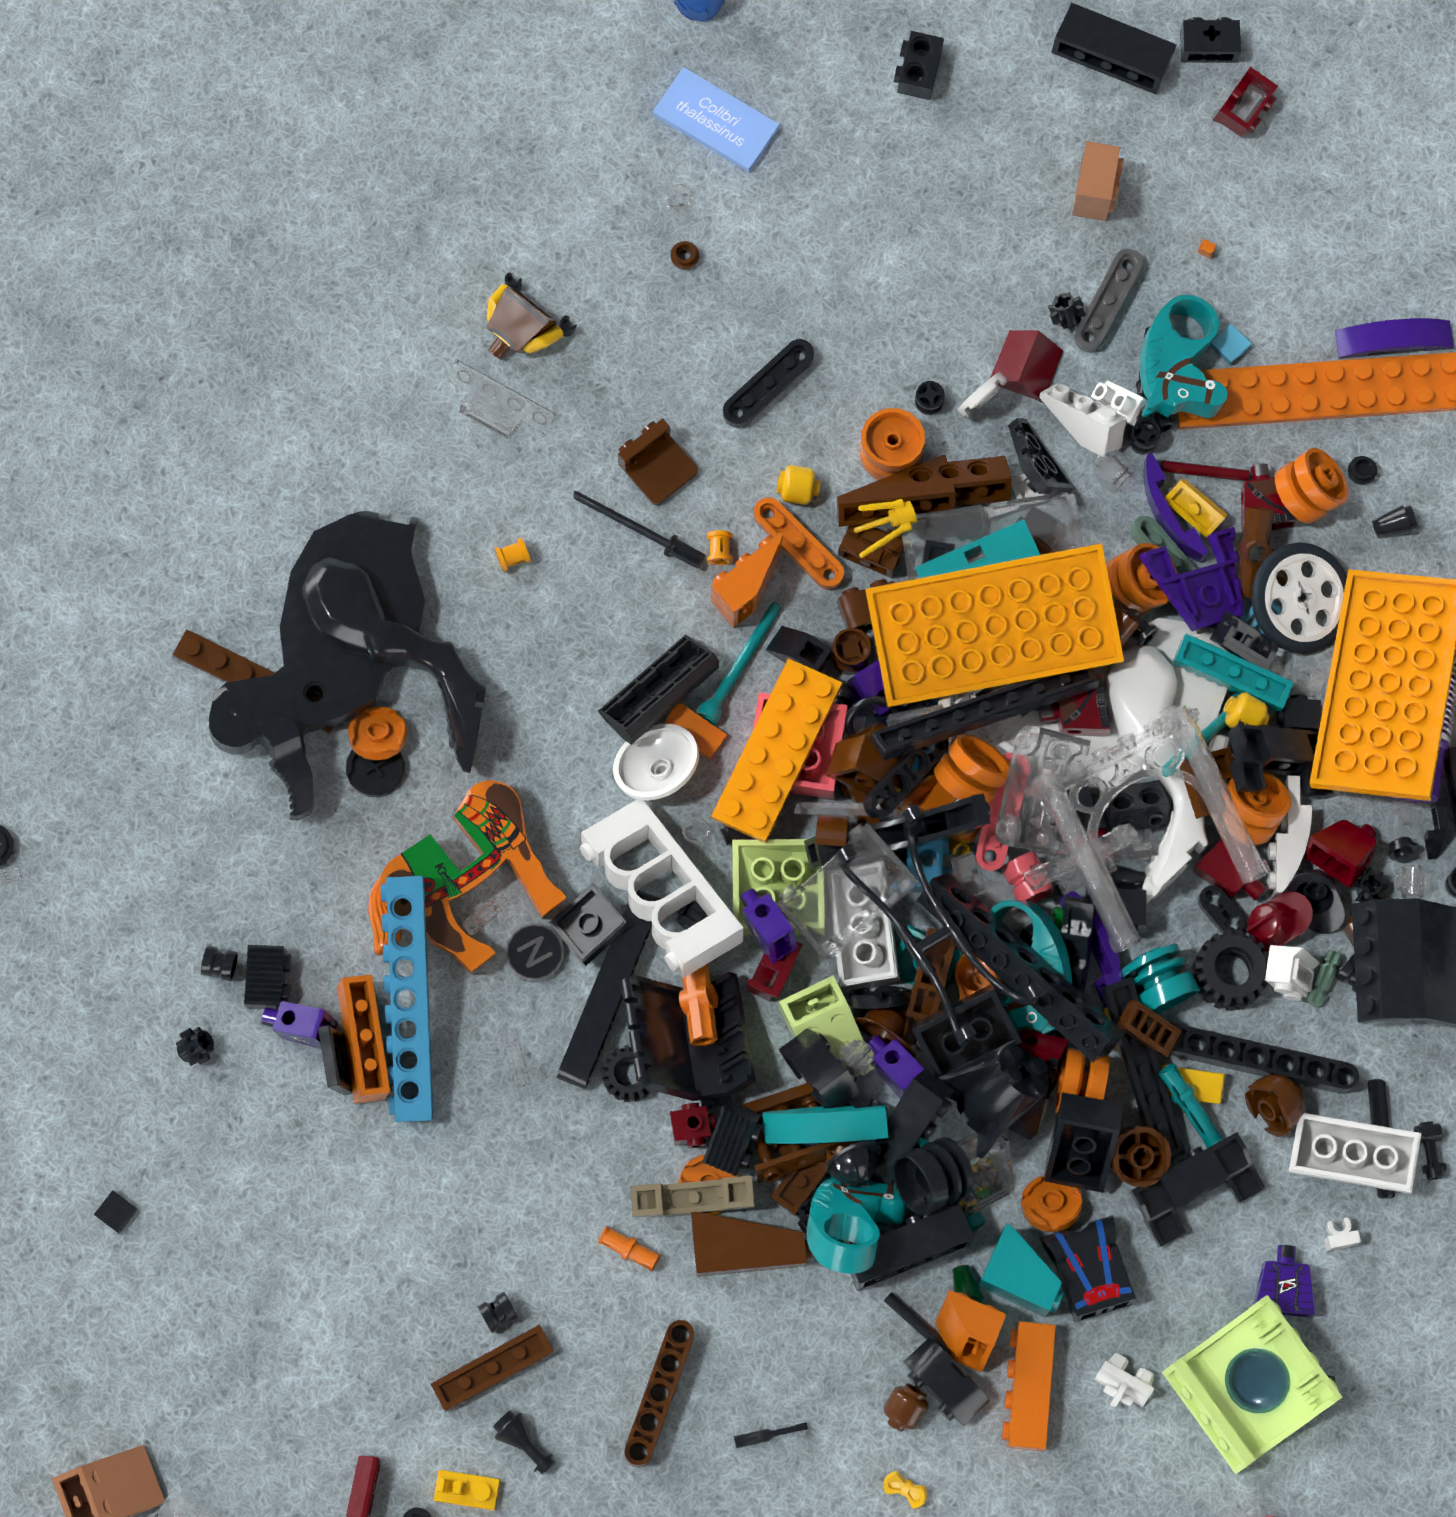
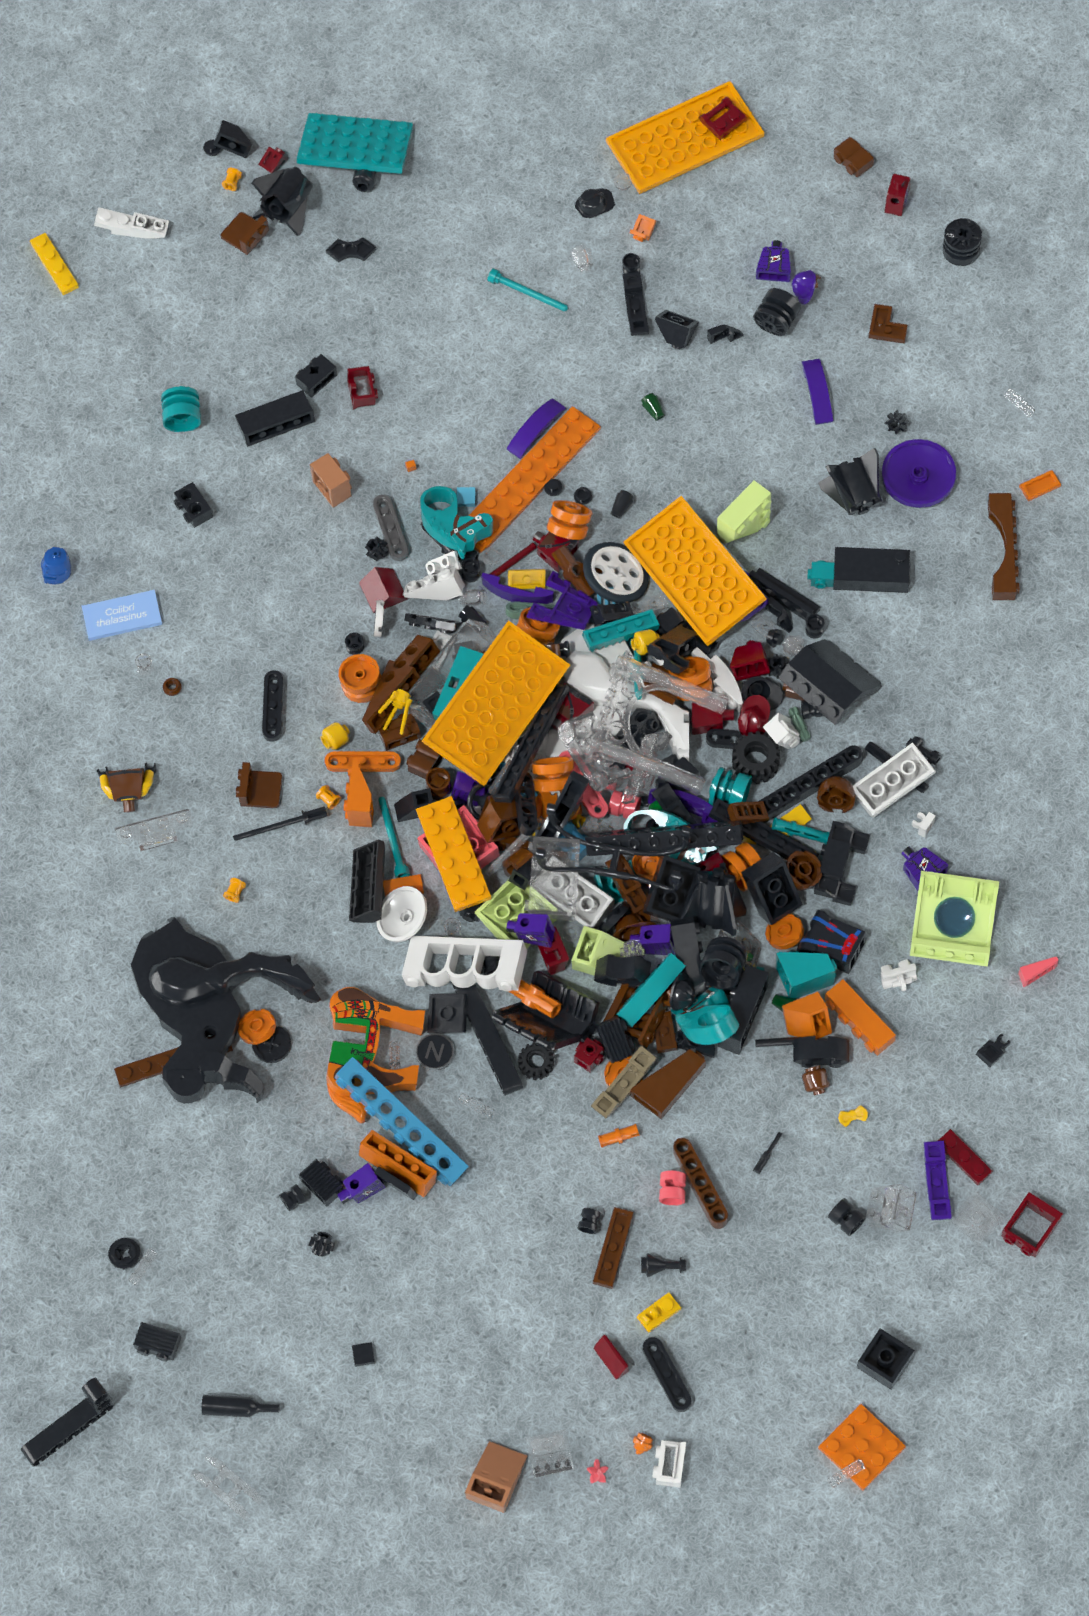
camera: 40 degrees left, 10 degrees down
(612, 1370) = (672, 1190): none -> coral wheel
(1089, 491) = (470, 613): none -> black cone
(1182, 443) = (490, 558): none -> clear slope
(1339, 428) = (553, 487): none -> black plate

